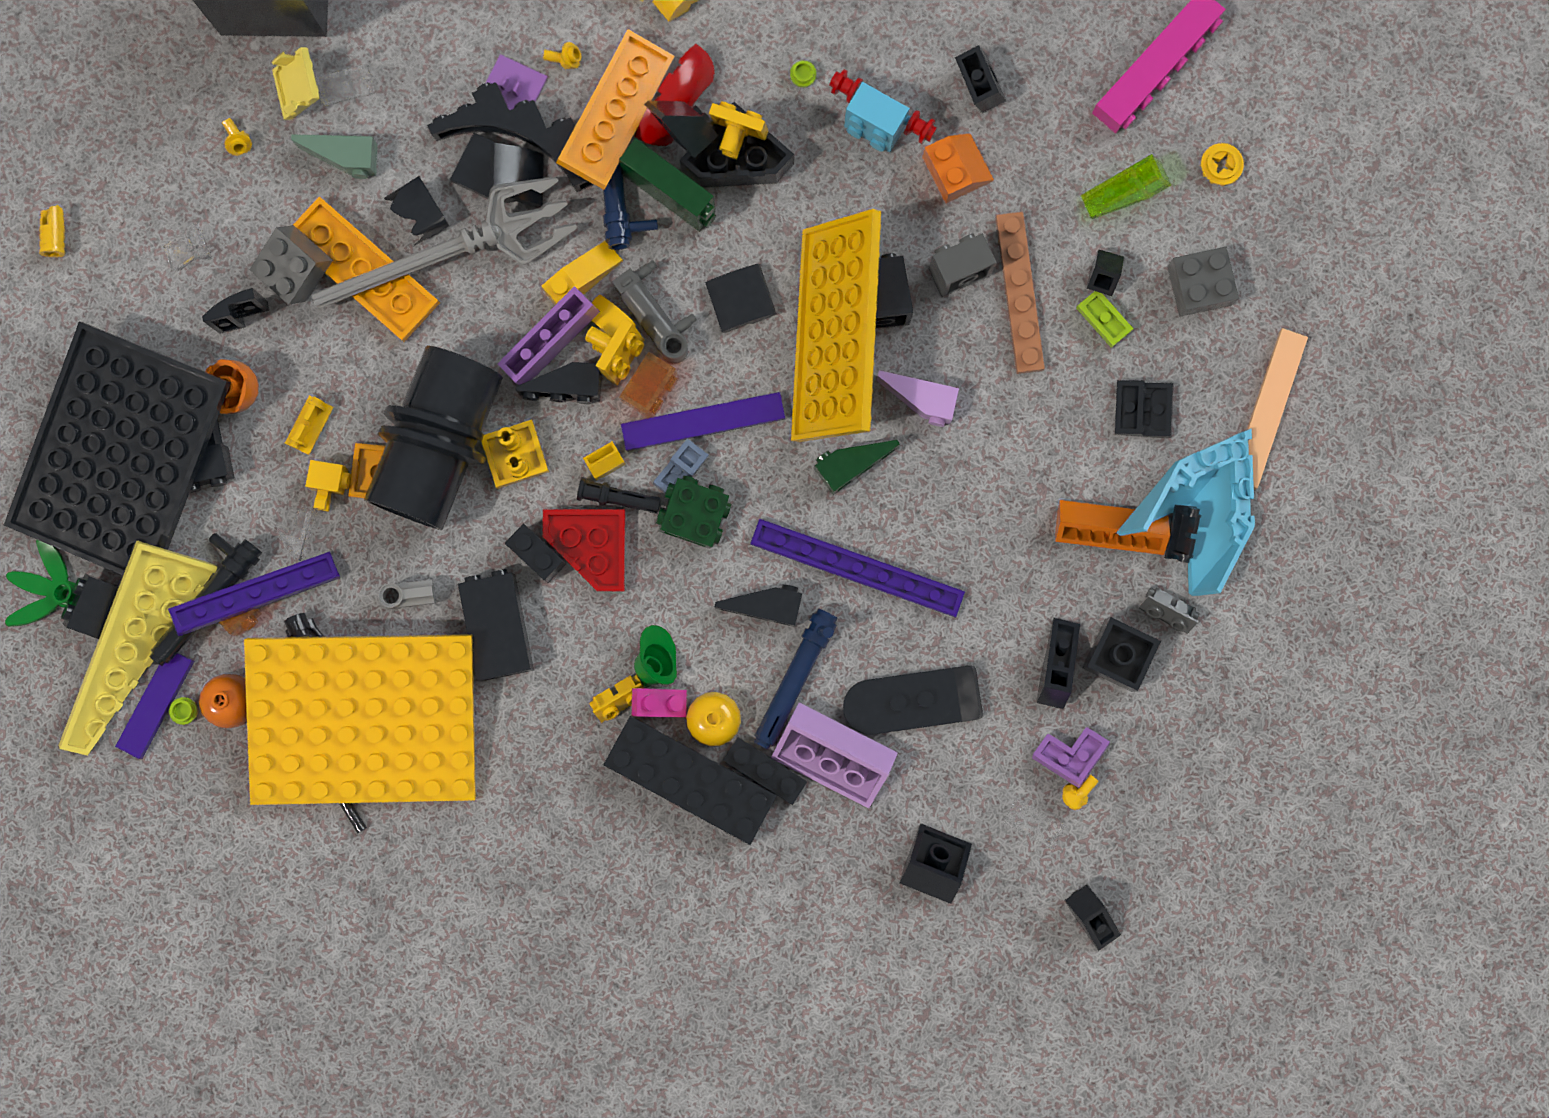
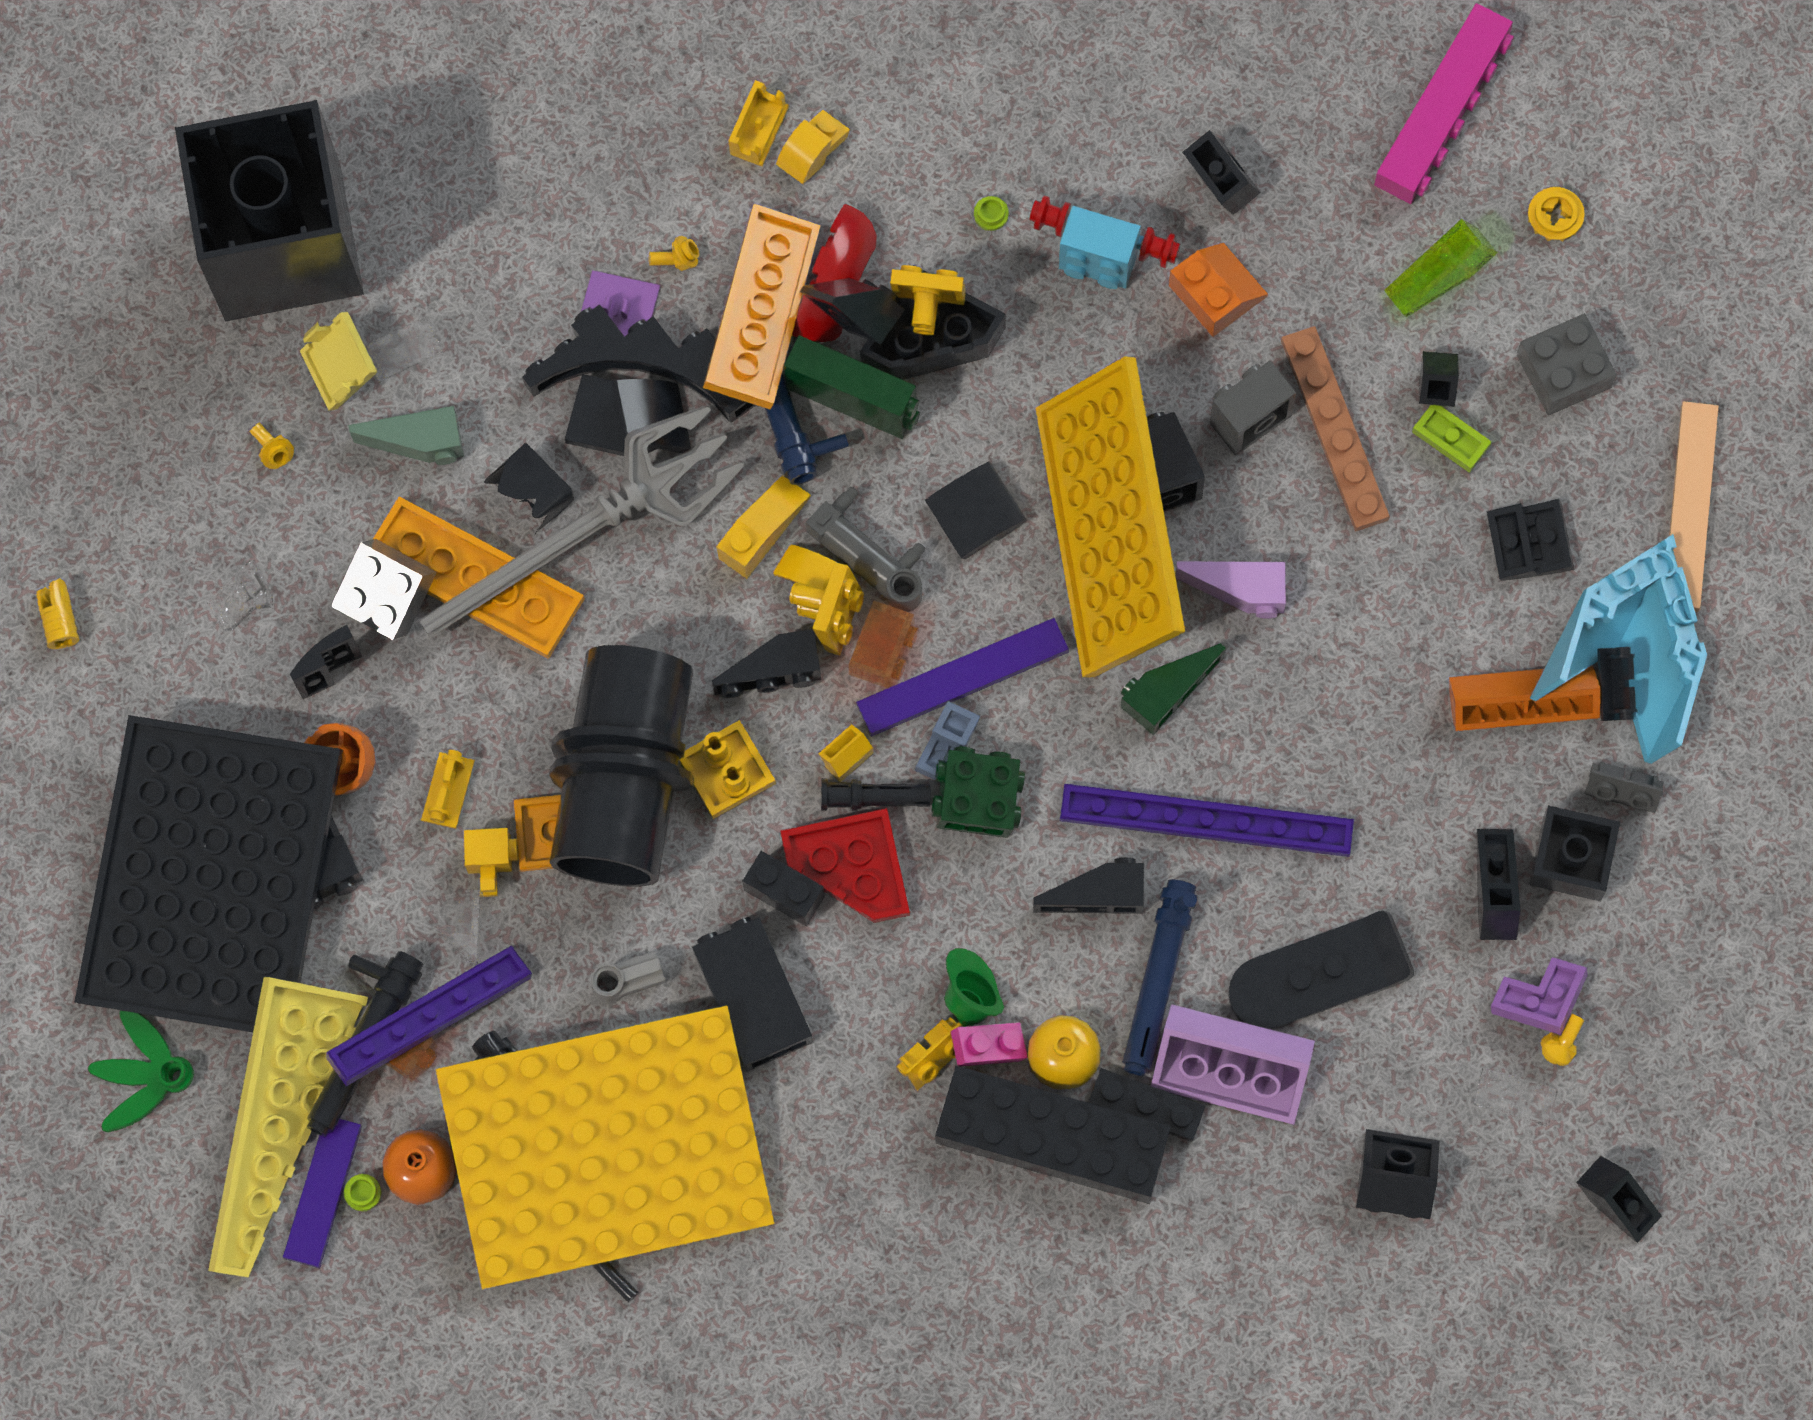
camera: 10 degrees left, 10 degrees down
(89, 606) = (214, 1079): black brick -> none
(548, 337) = (740, 609): medium lavender brick -> none

